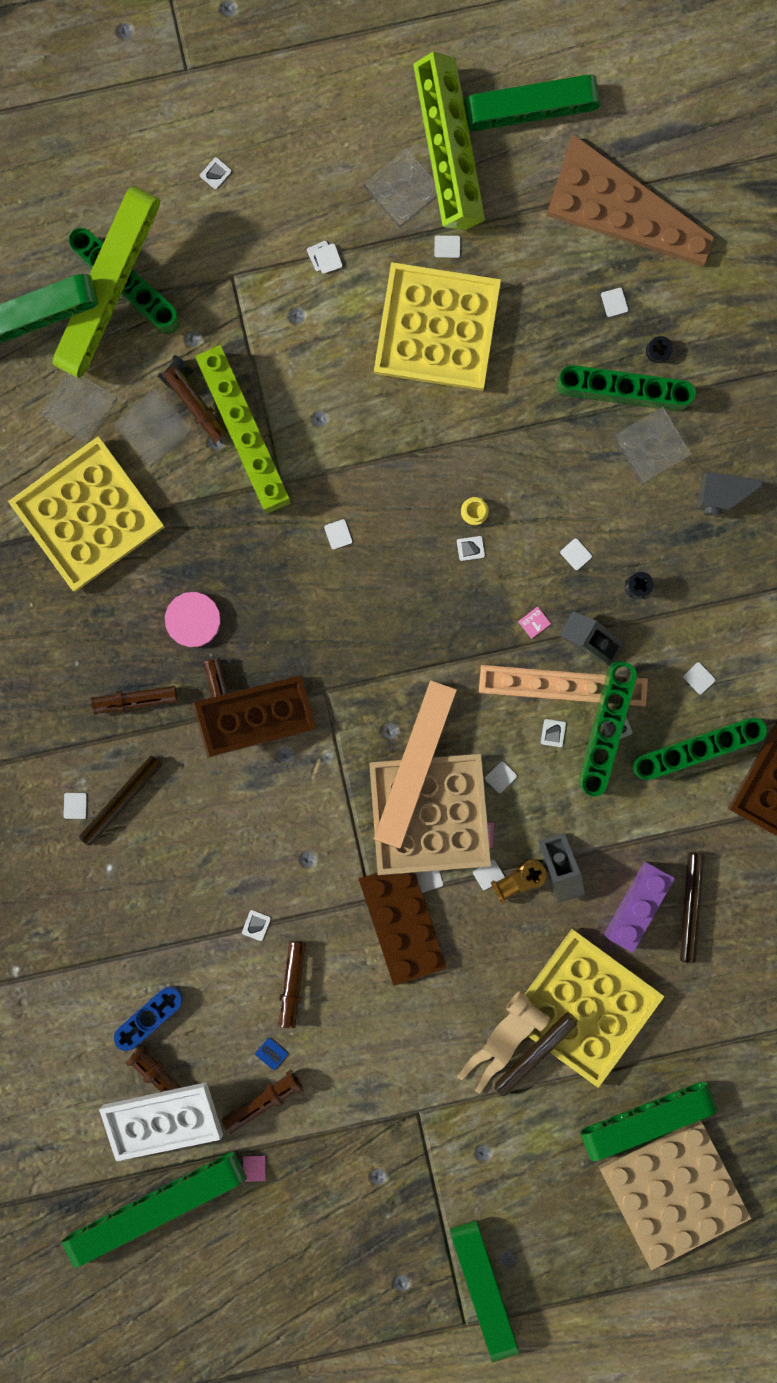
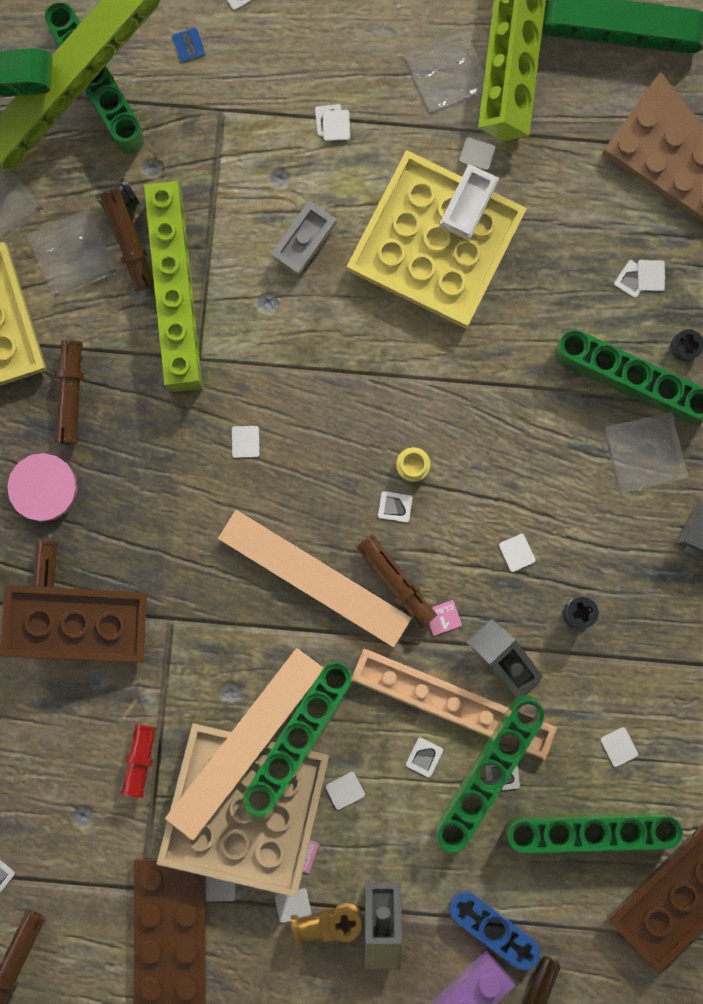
camera: 15 degrees right, 5 degrees down
(188, 229) = (188, 44): none -> blue sticker
(188, 538) = (68, 395): none -> reddish brown pin
(332, 358) = (303, 238): none -> light grey plate
(337, 803) = (139, 760): none -> red pin
(426, 623) = (314, 578): none -> light nougat tile
(454, 289) = (469, 202): none -> white tile
(457, 736) = (300, 723): none -> green beam
(493, 607) = (398, 583): none -> reddish brown pin
(597, 311) = (629, 279): none -> sticker
(663, 858) = (520, 938): none -> blue beam

